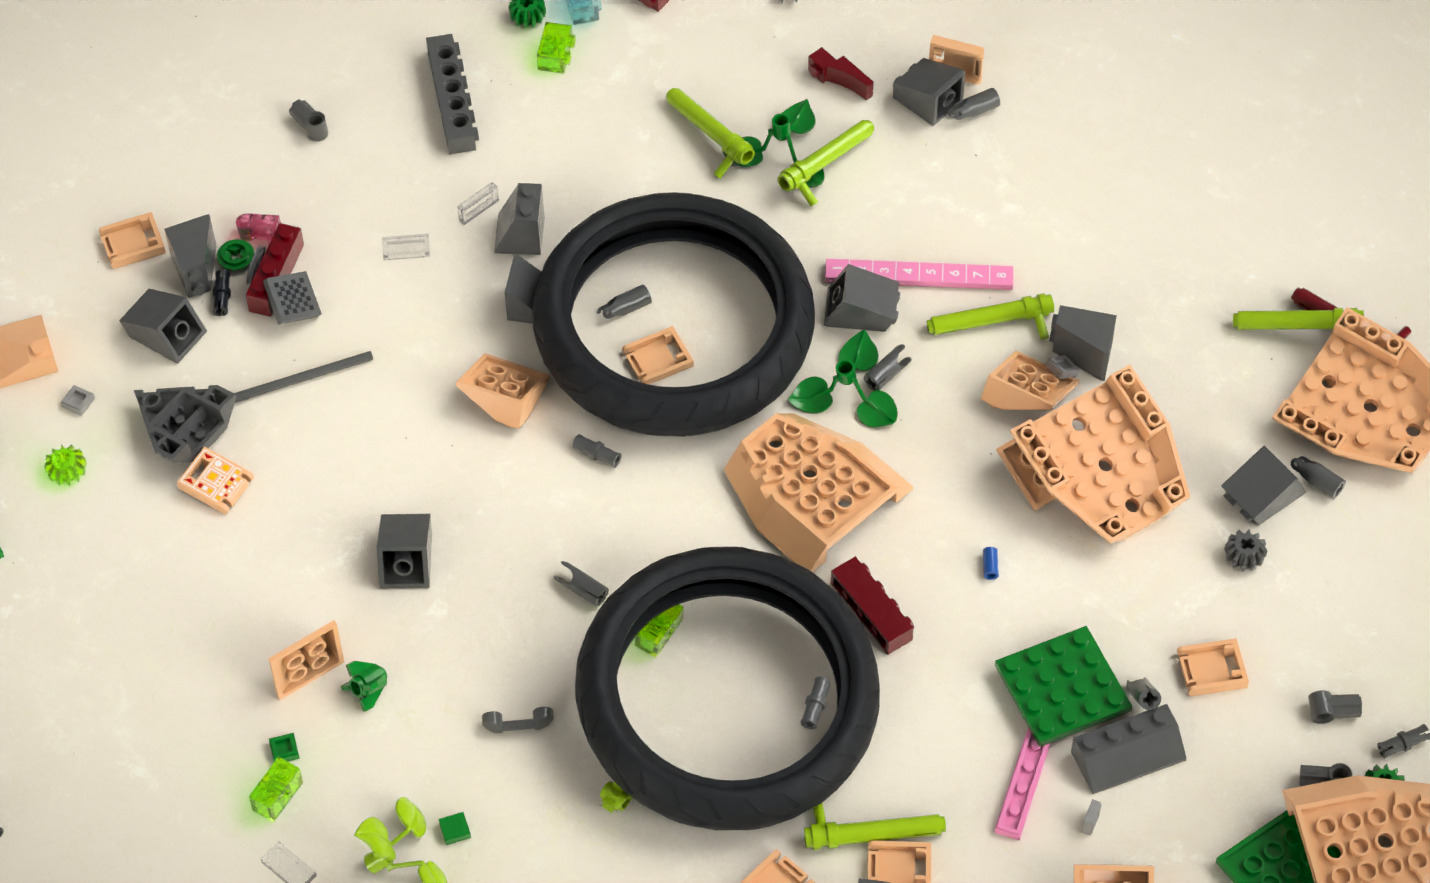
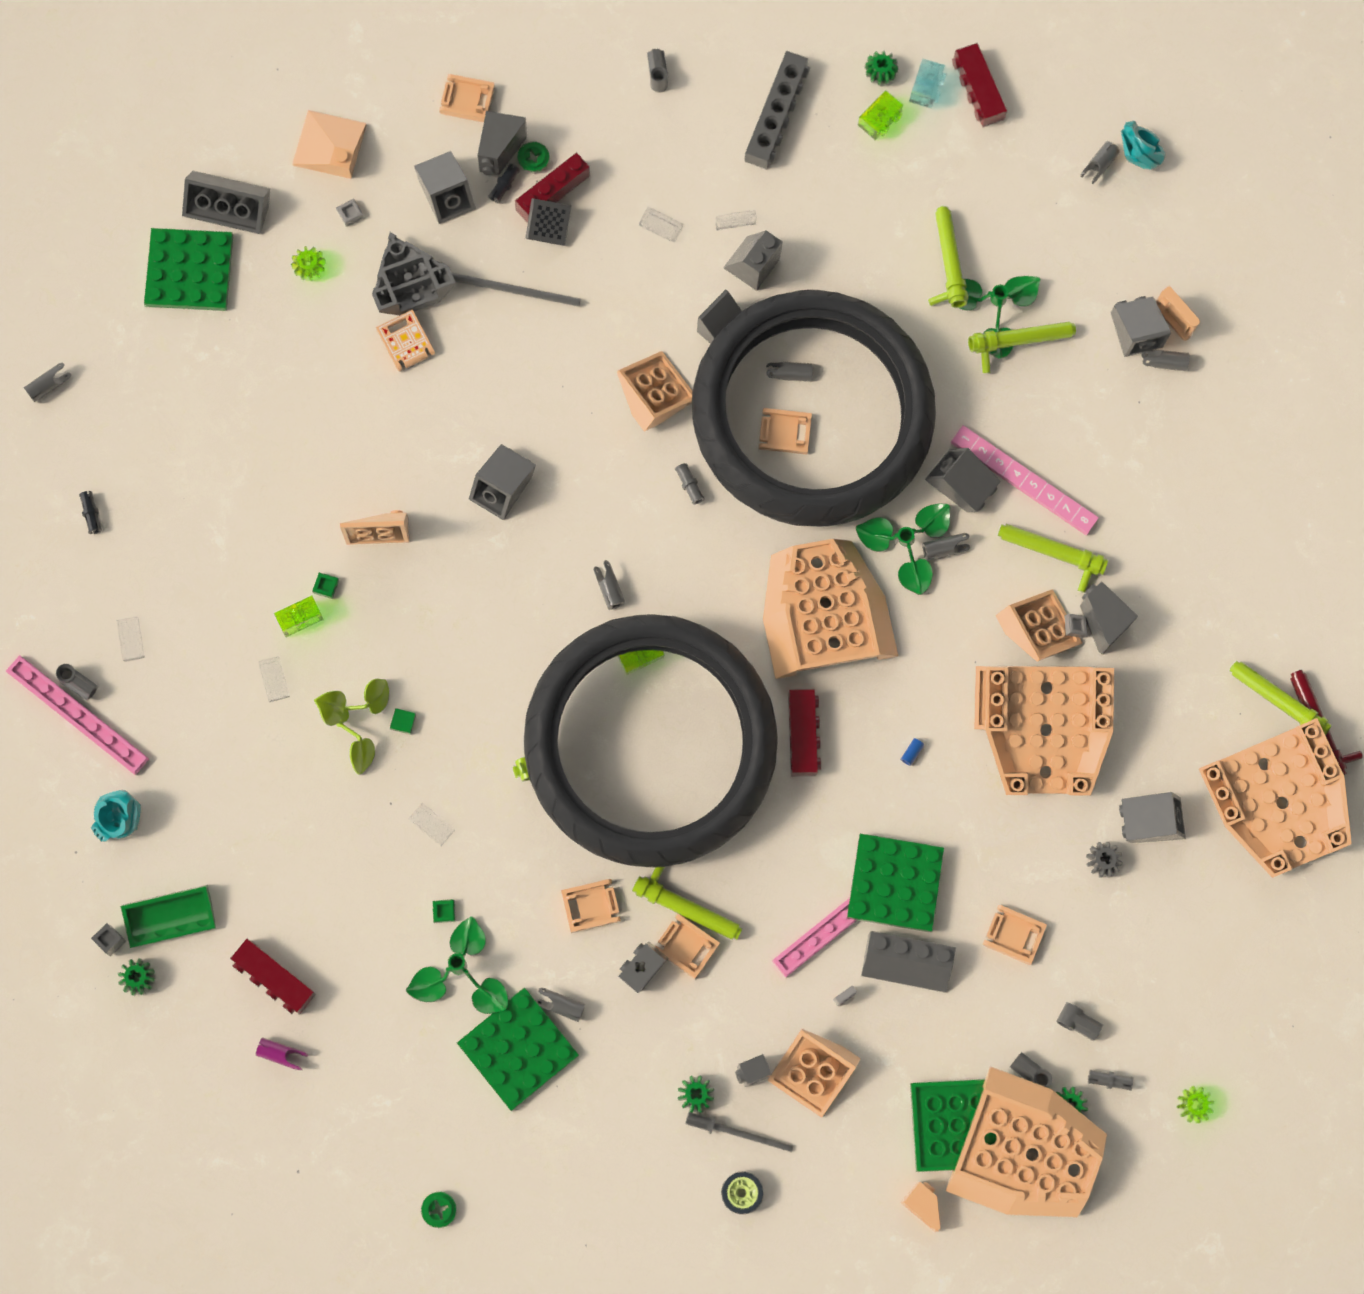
camera: 25 degrees right, 20 degrees up
(256, 260) = (539, 176): dark grey wheel -> none
(257, 226) = (563, 142): clear pink leg -> none
(366, 682) = (409, 571): green brick -> none
(541, 718) = (514, 674): dark grey bar -> none
(815, 703) = (696, 798): dark grey pin -> none
(840, 71) = (1084, 268): dark red slope -> none
(1144, 693) = (946, 929): dark grey piece -> none
(1319, 476) = (1202, 833): dark grey piece -> none

